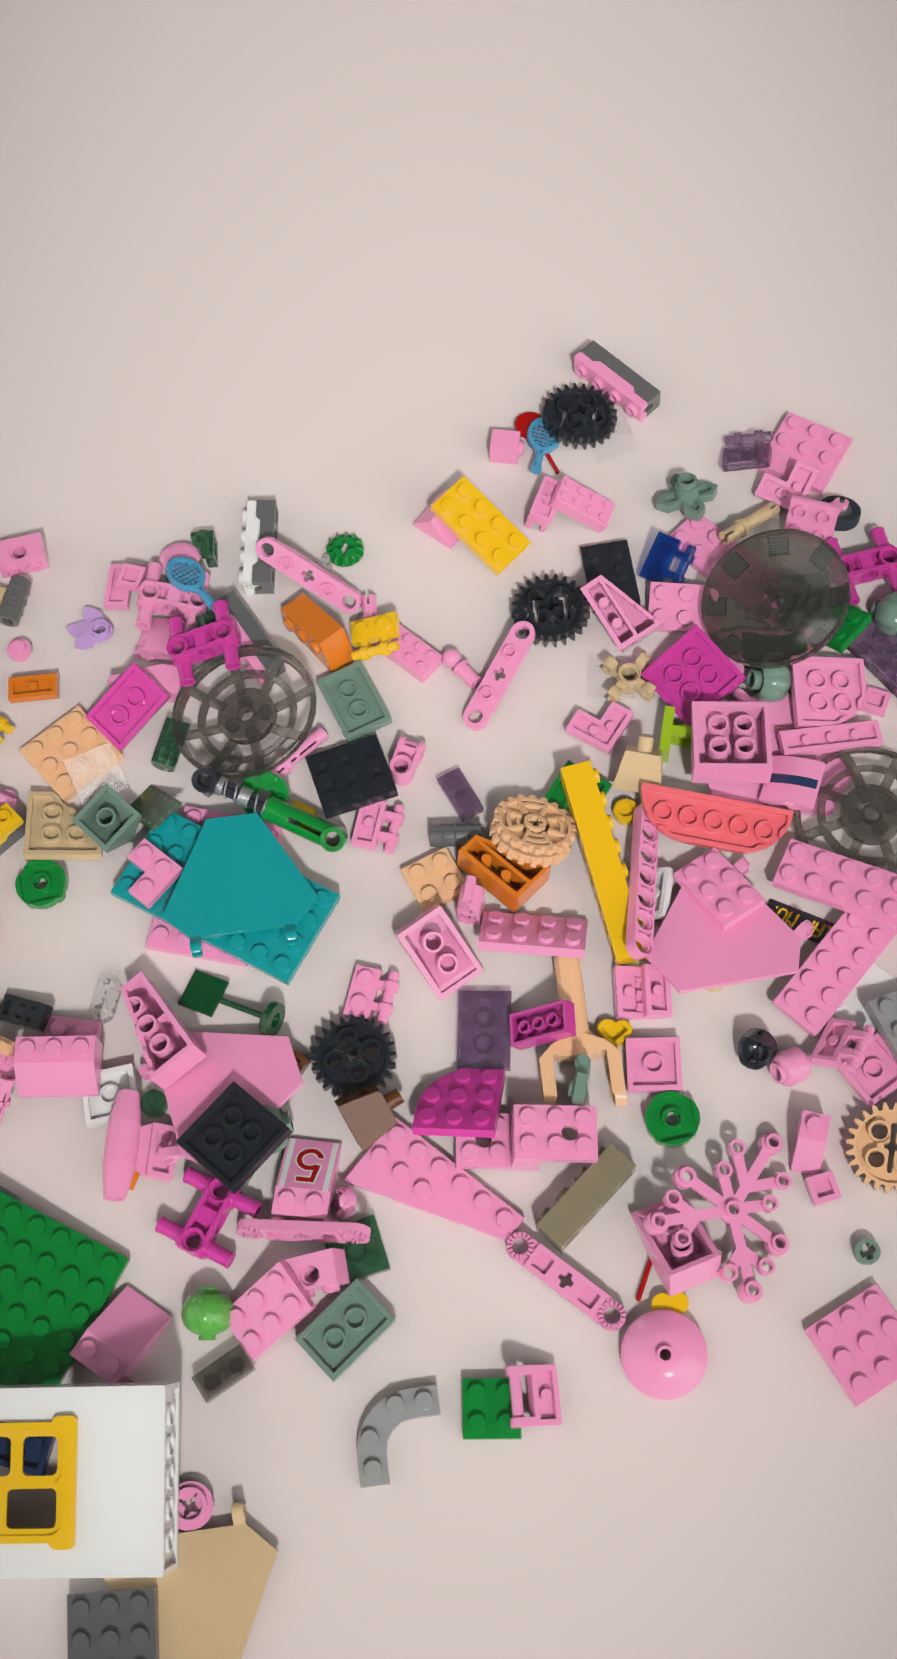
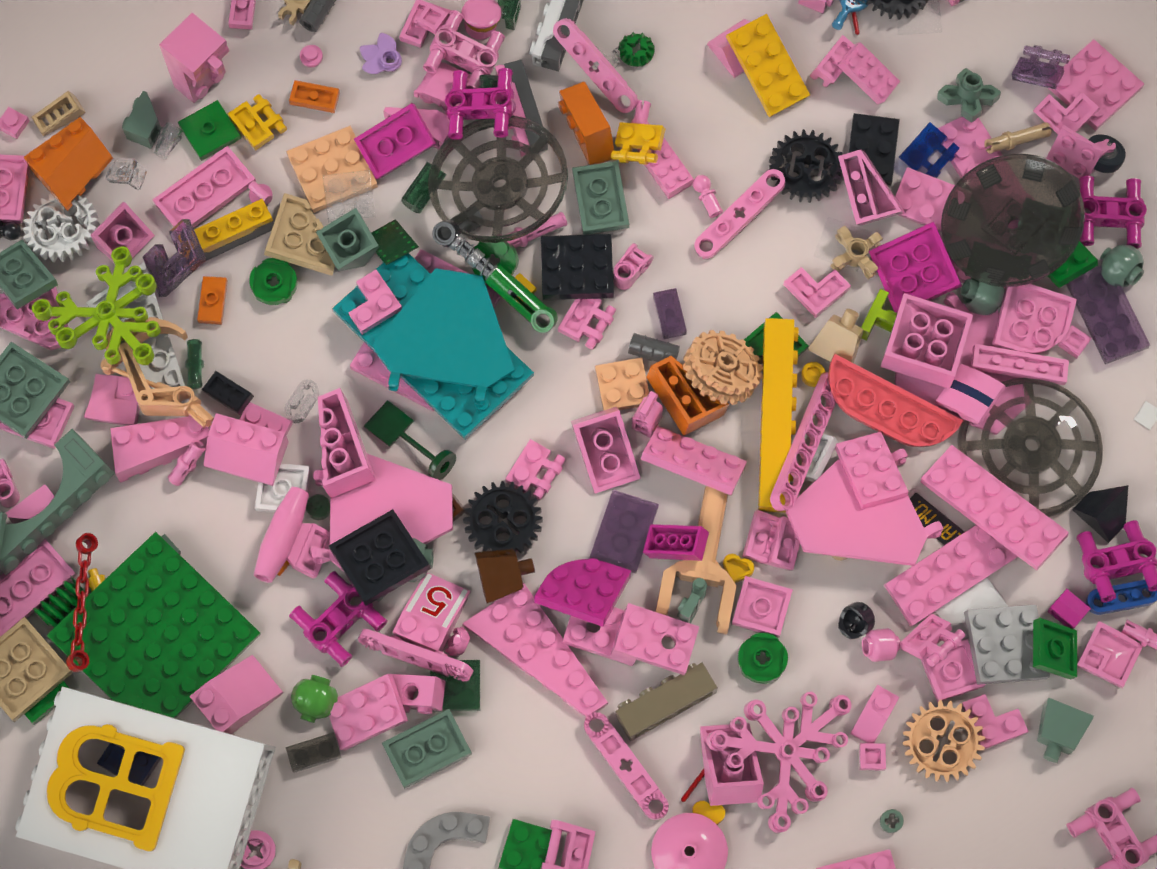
camera: 10 degrees right, 5 degrees up
(195, 588) = (480, 44): dark azure piece -> none

